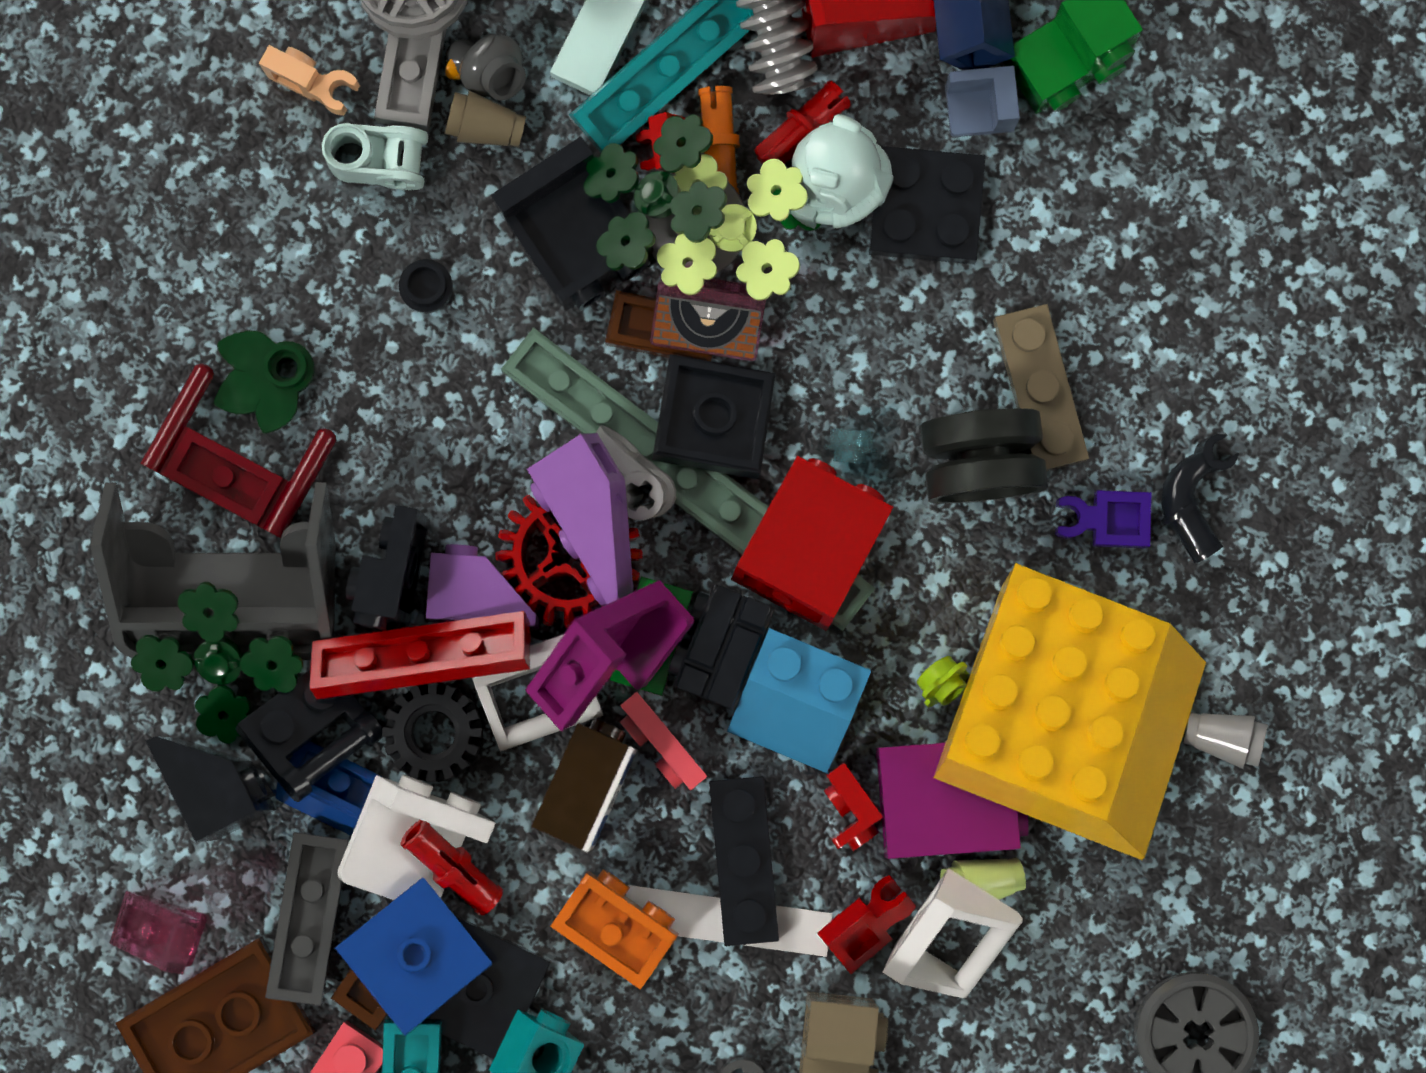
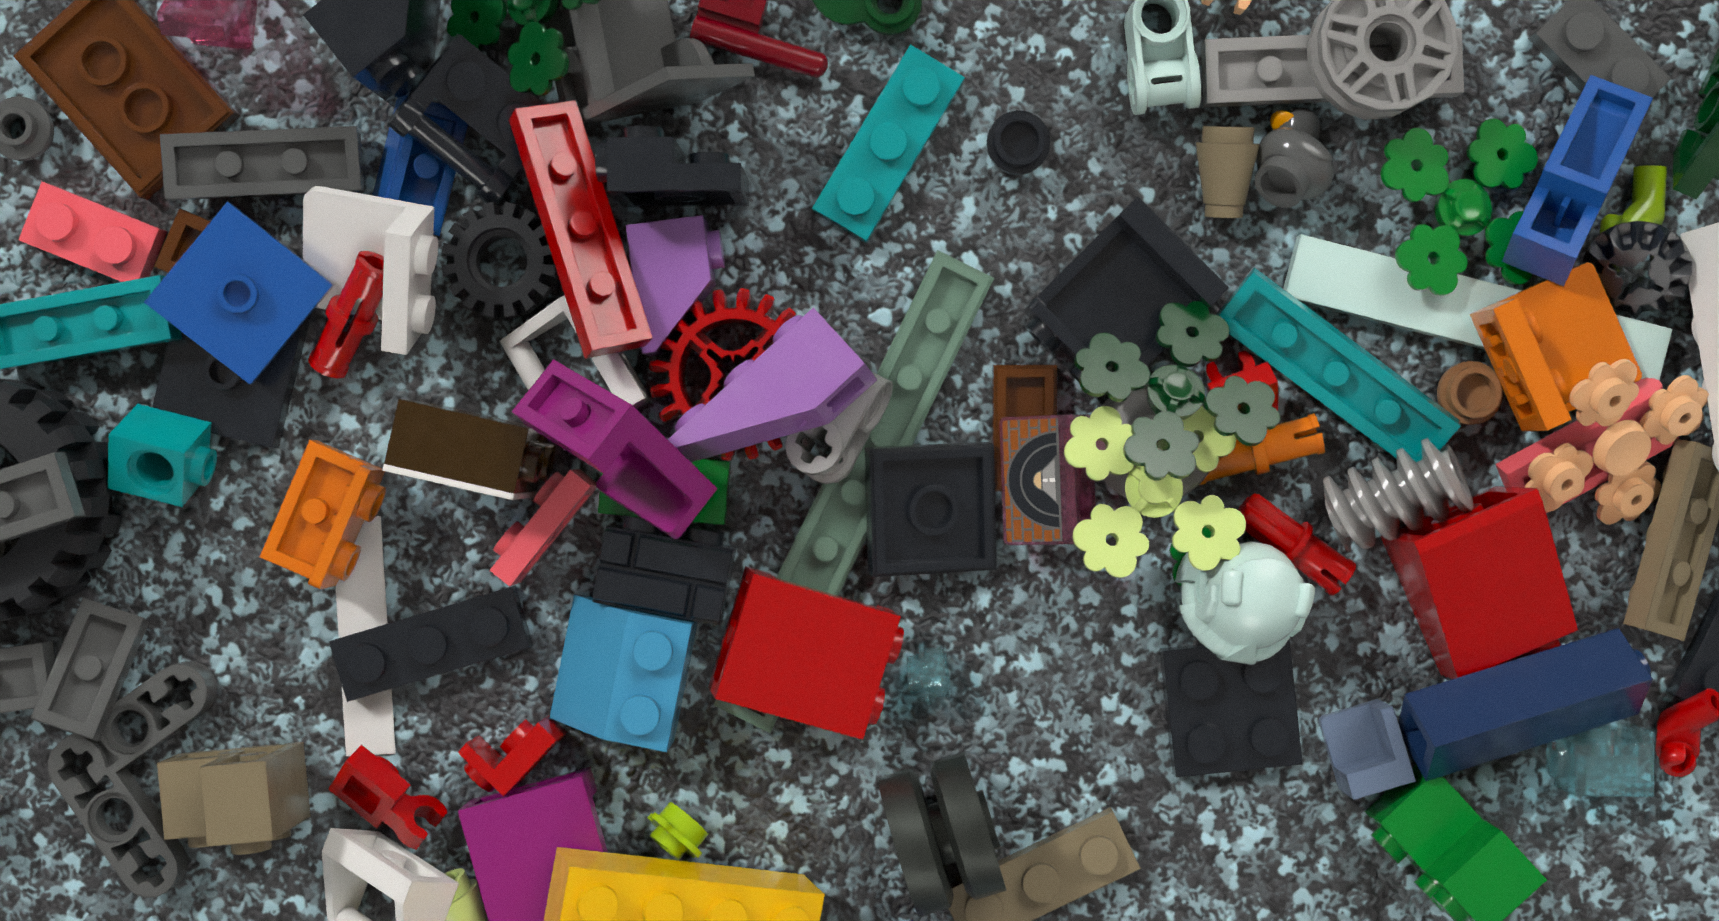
camera: 75 degrees right, 5 degrees up
(404, 393) = (888, 143): none -> teal plate

